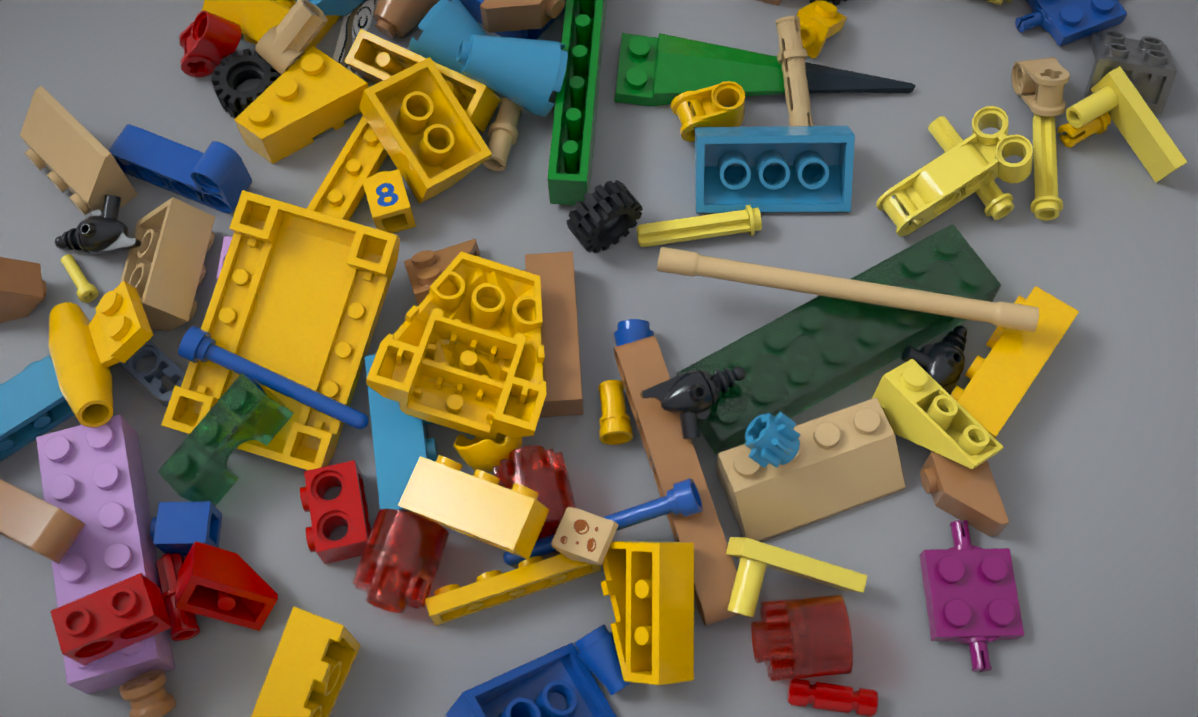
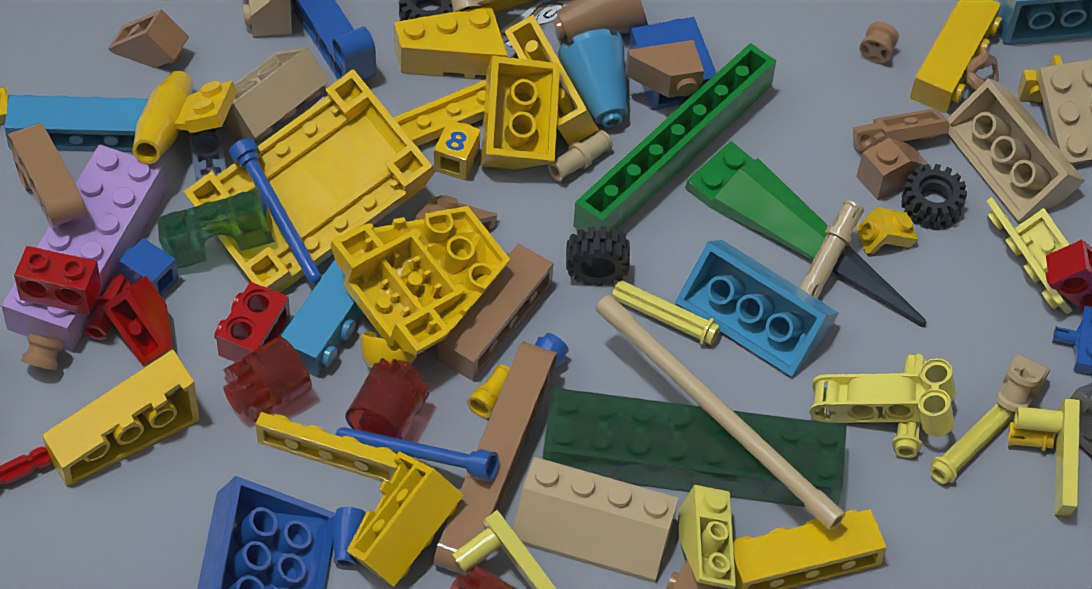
camera: 30 degrees right, 10 degrees down
(86, 291) = (206, 75): light yellow piece -> none
(99, 232) = (245, 42): black piece -> none
(475, 505) = (339, 370): yellow brick -> none
(516, 68) = (618, 110): dark azure cone -> none
(584, 536) = (394, 440): tan slope -> none
(693, 395) = (545, 402): black piece -> none
(708, 108) = (750, 235): yellow piece -> none
(772, 439) = (571, 464): dark azure gear -> none
(943, 359) = (757, 516): black piece -> none

